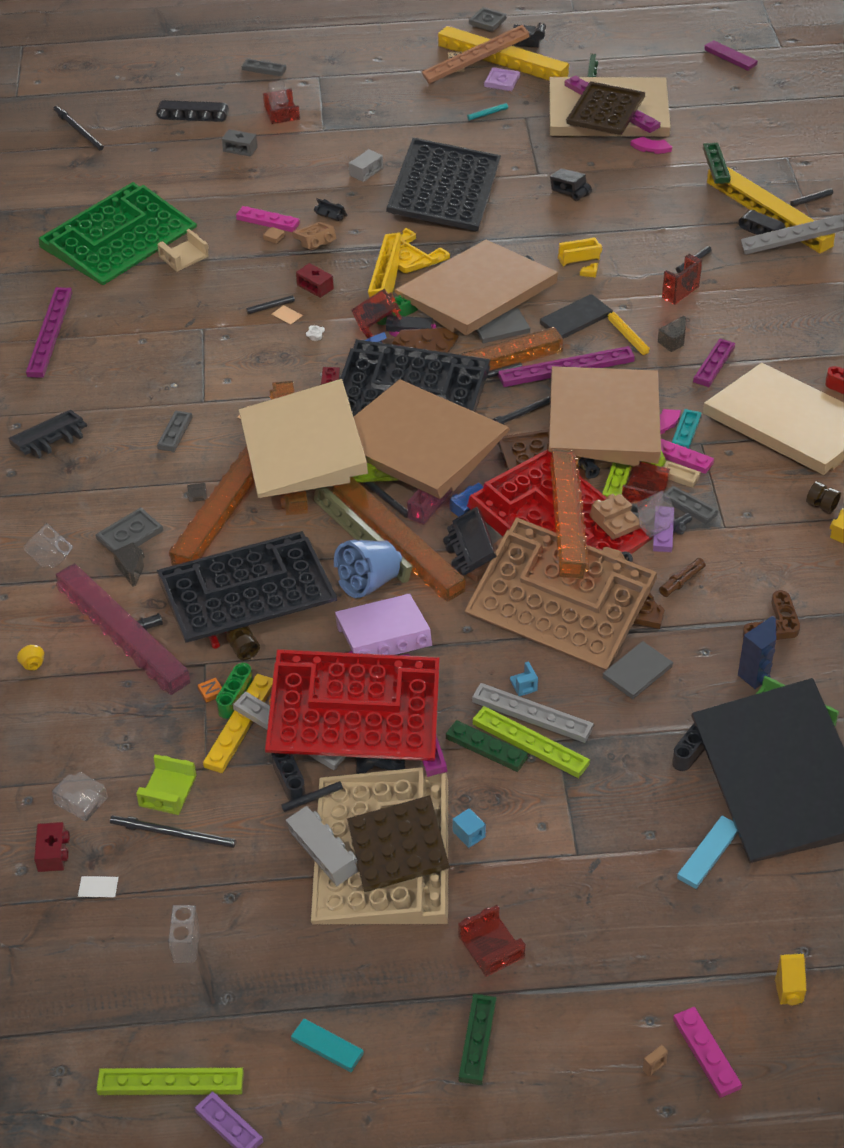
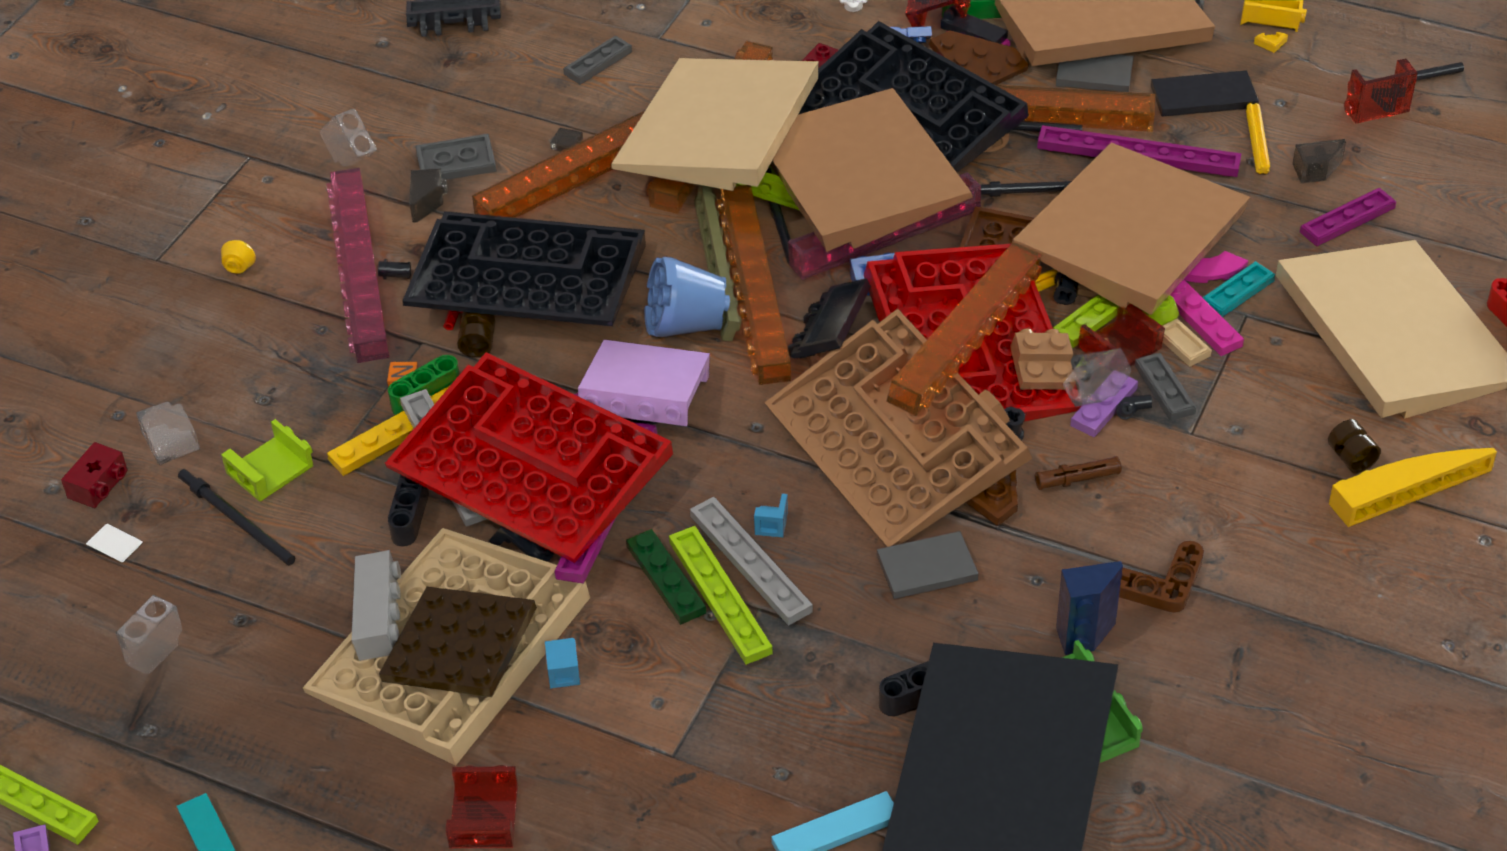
camera: 30 degrees right, 0 degrees up
(311, 796) = (414, 545): black bar -> none

